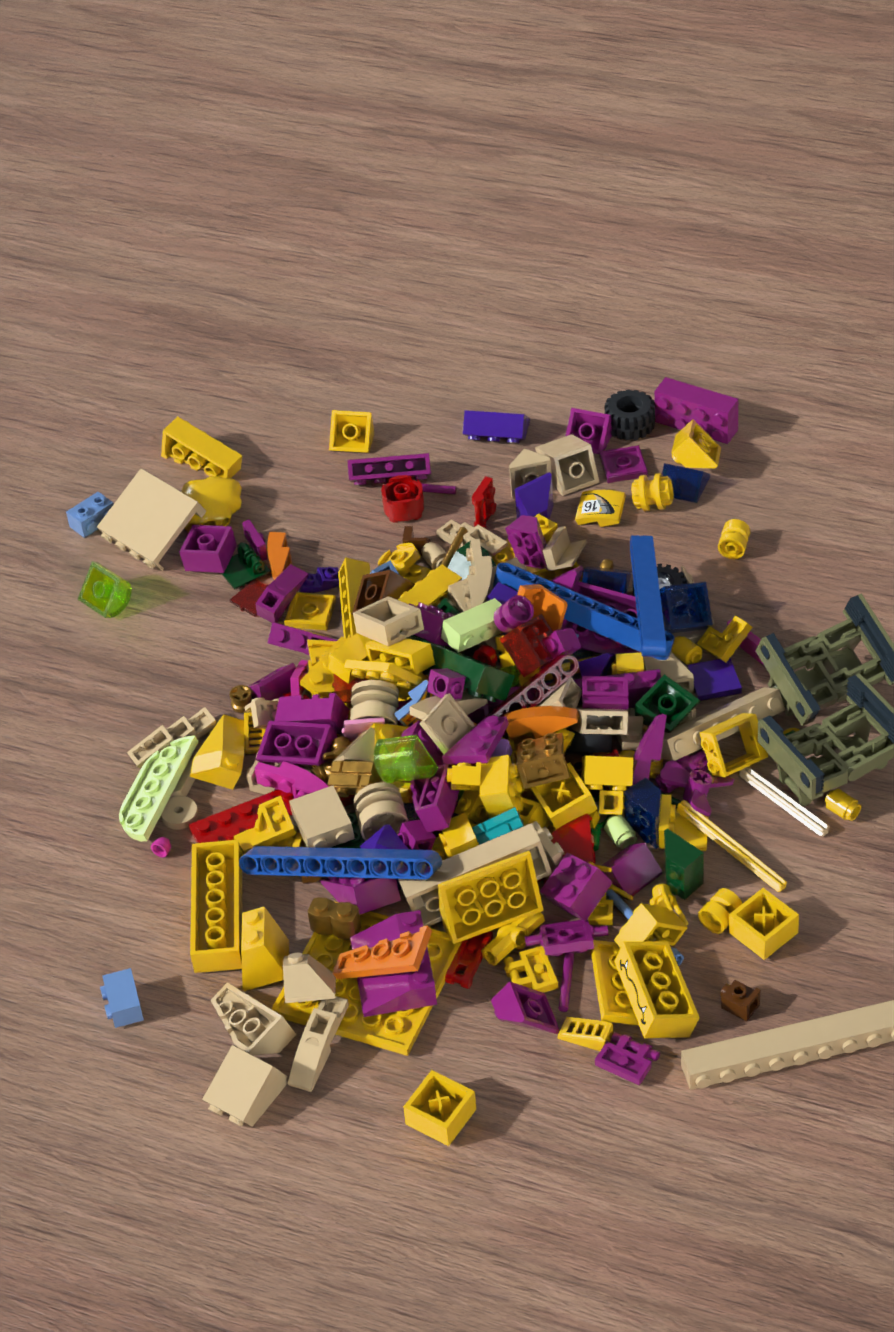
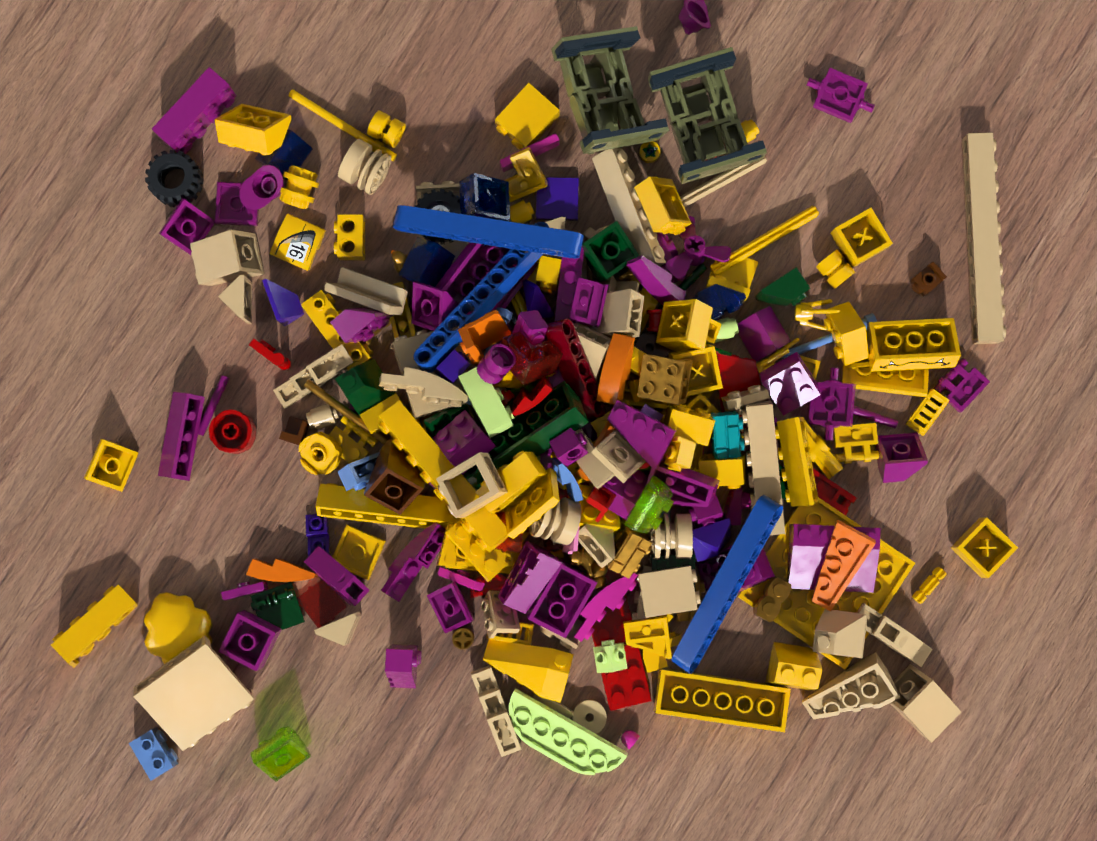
camera: 85 degrees left, 40 degrees up
(122, 998) = (803, 797): medium blue brick -> none
(205, 648) = (402, 665): none -> magenta wedge
(232, 604) = (340, 630): none -> tan slope
(235, 798) = (610, 657): none -> yellowish green brick
(385, 1074) = (929, 585): none -> yellow axle
(399, 725) = (601, 500): none -> red panel
(490, 656) = (526, 400): none -> red slope
(495, 426) = (144, 314): dark purple slope -> none
(614, 538) = (356, 237): none -> yellow brick
(641, 465) = (261, 187): none -> magenta piece
(688, 527) = (361, 165): none -> tan wheel
(714, 539) = (376, 144): none -> yellow bar
(788, 627) = (526, 117): none -> yellow brick

